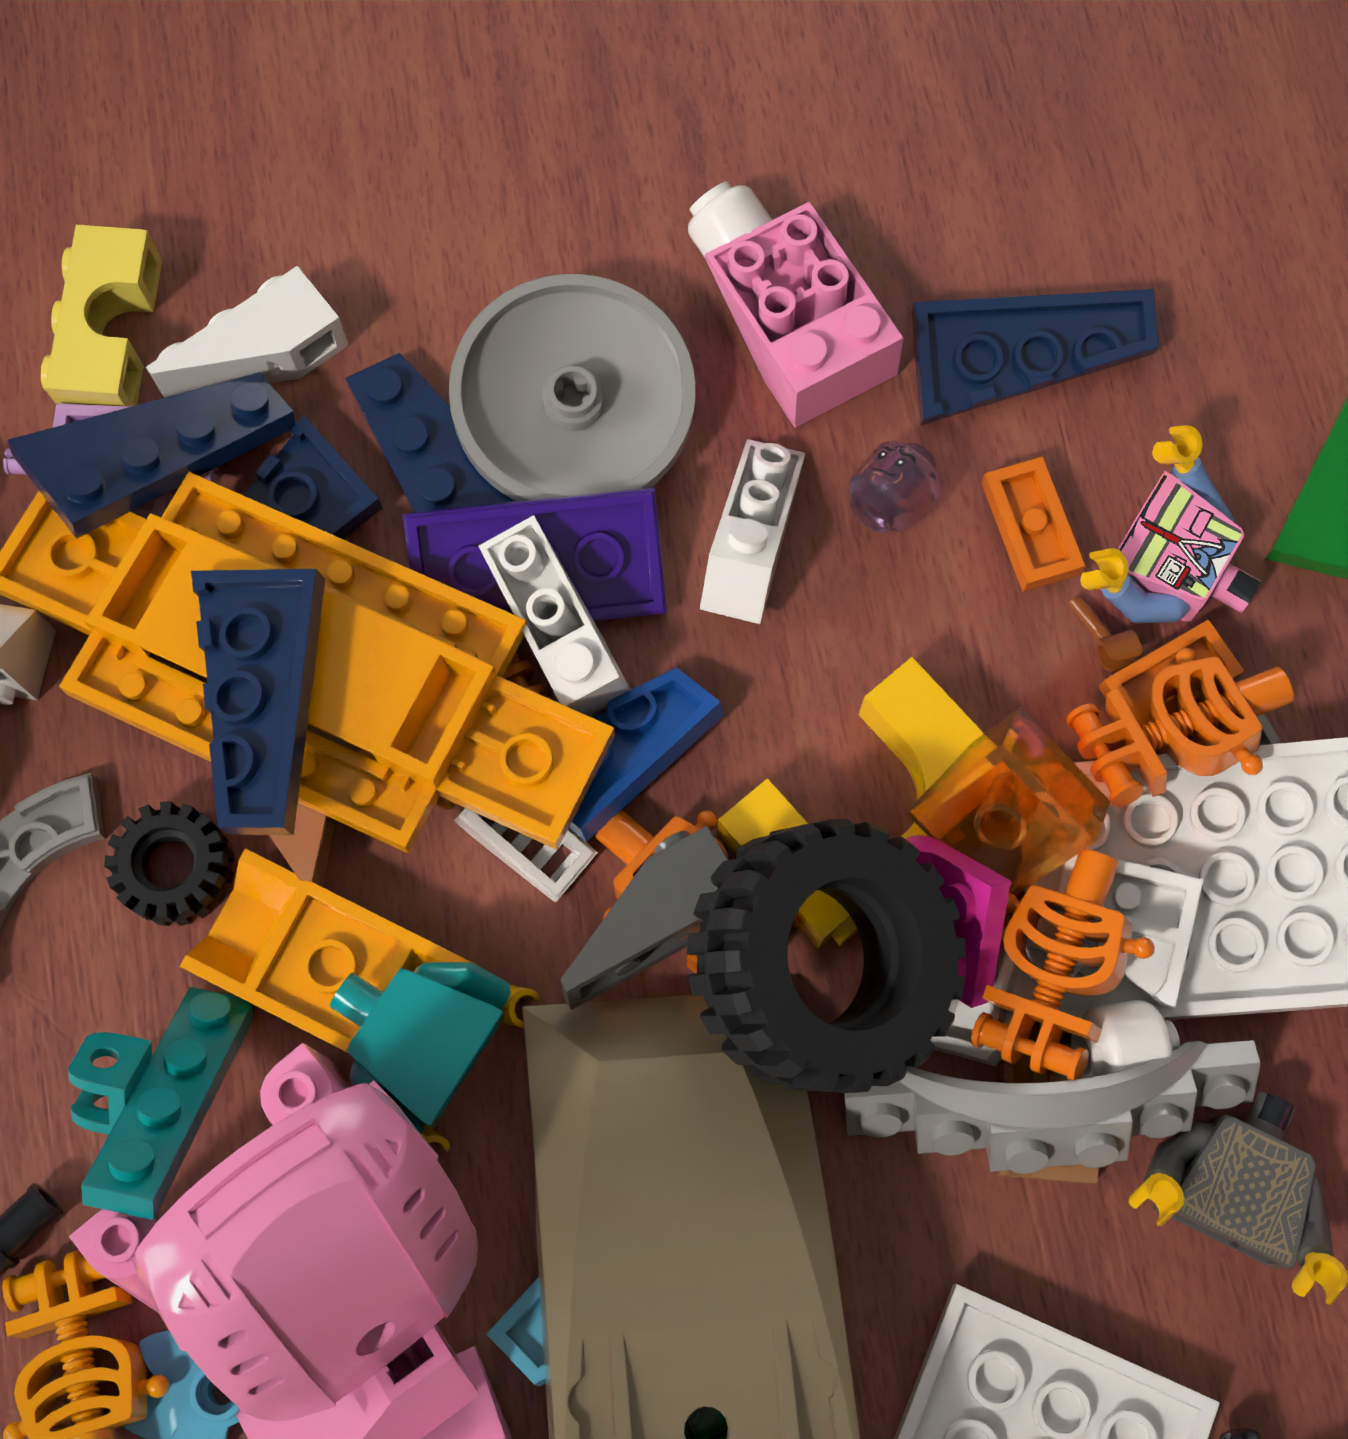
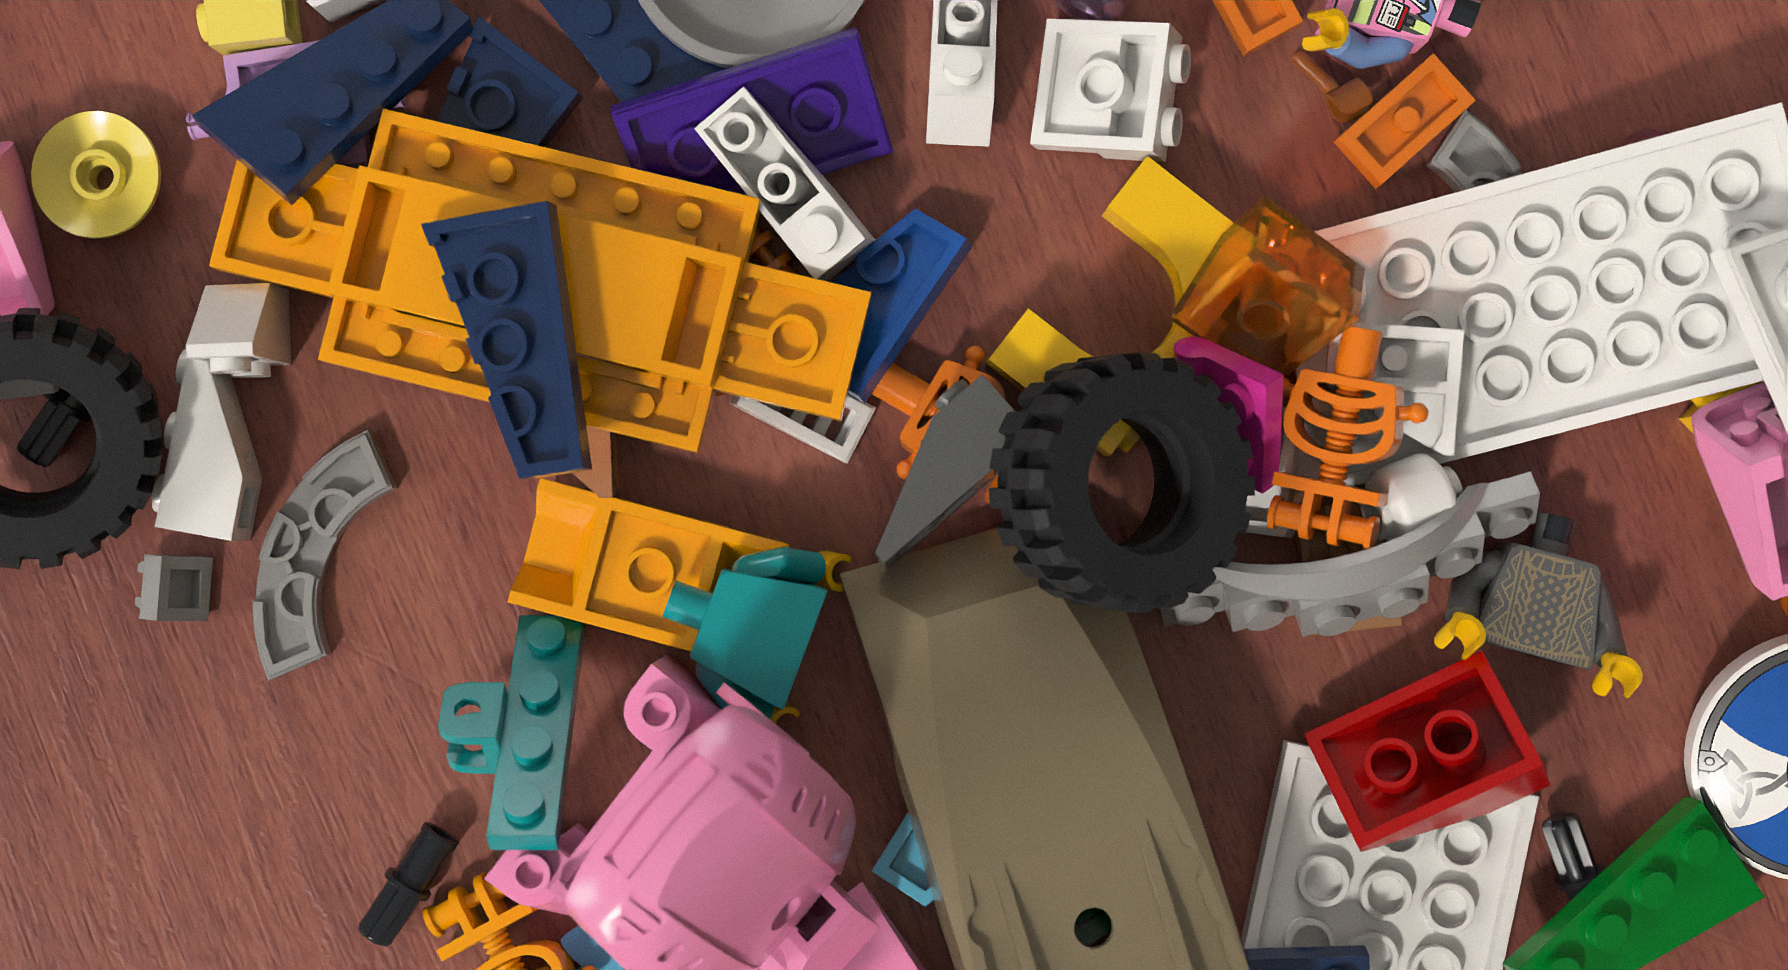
camera: 10 degrees left, 15 degrees up
(143, 837) = (430, 503): black tyre -> none
(888, 592) = (1110, 88): none -> white plate
(1106, 1327) = (1428, 755): none -> red slope
(1220, 725) = (1462, 148): orange torso -> none

